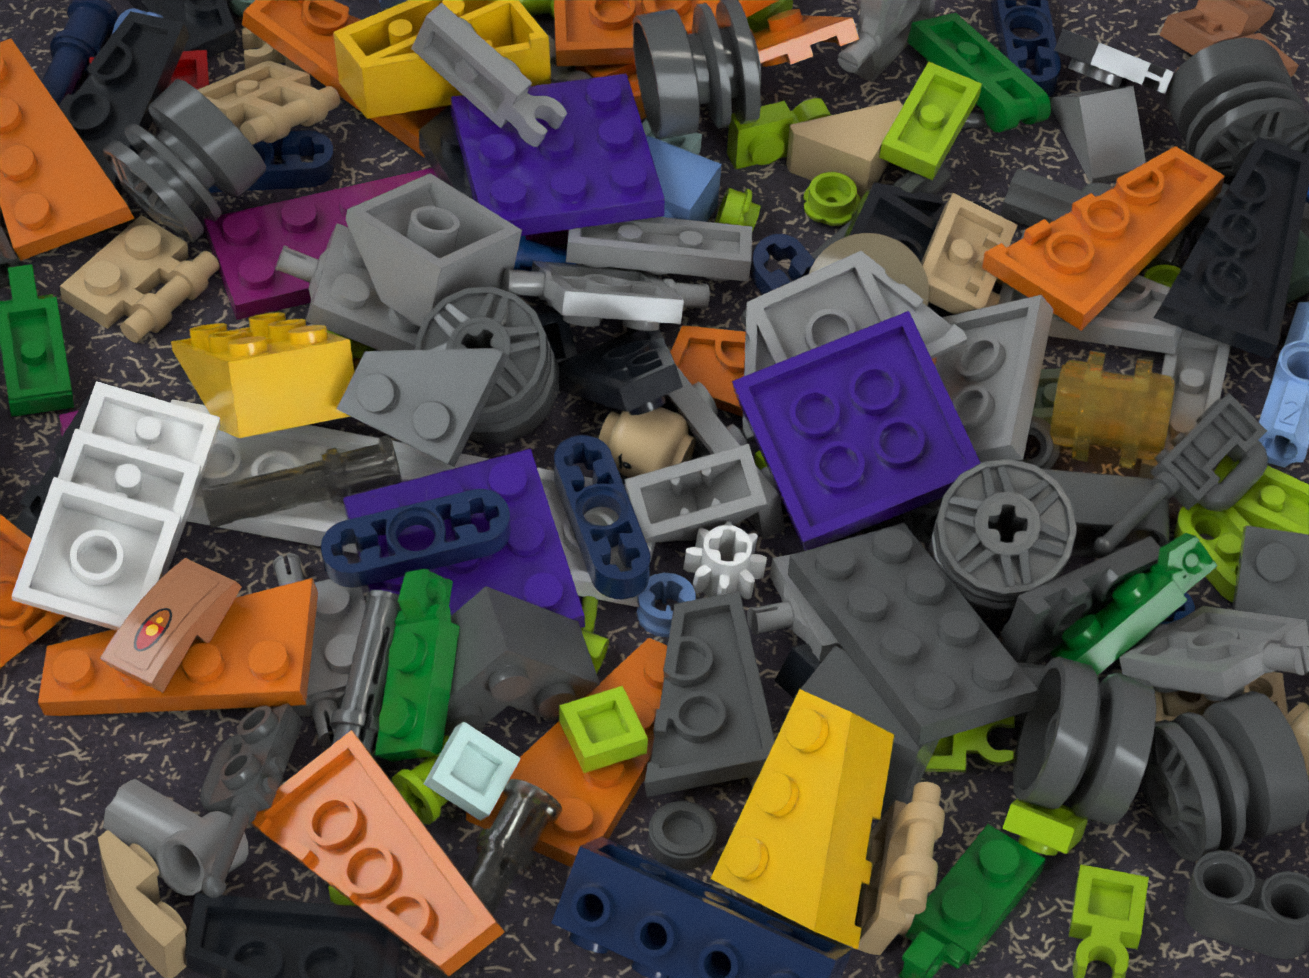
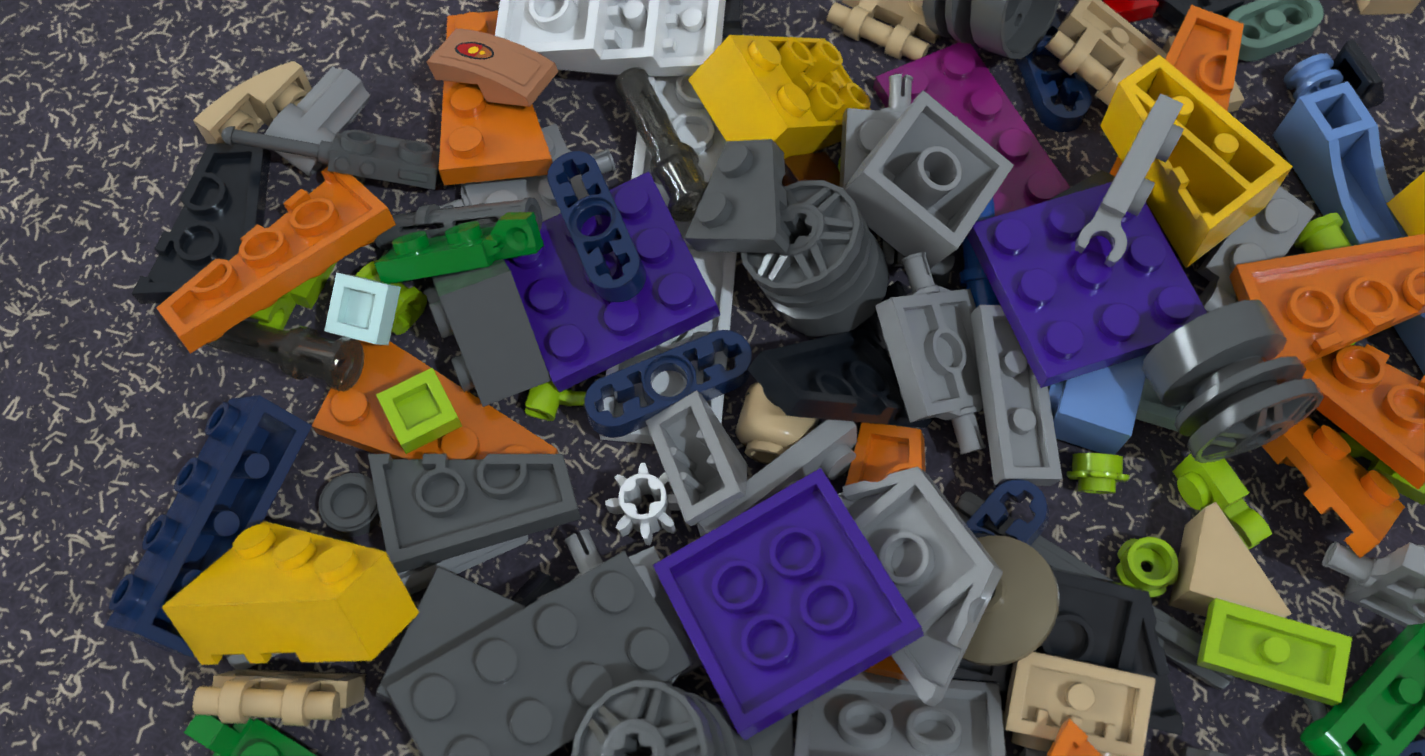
camera: 85 degrees right, 15 degrees up
(662, 587) = (599, 445): medium blue bush -> none

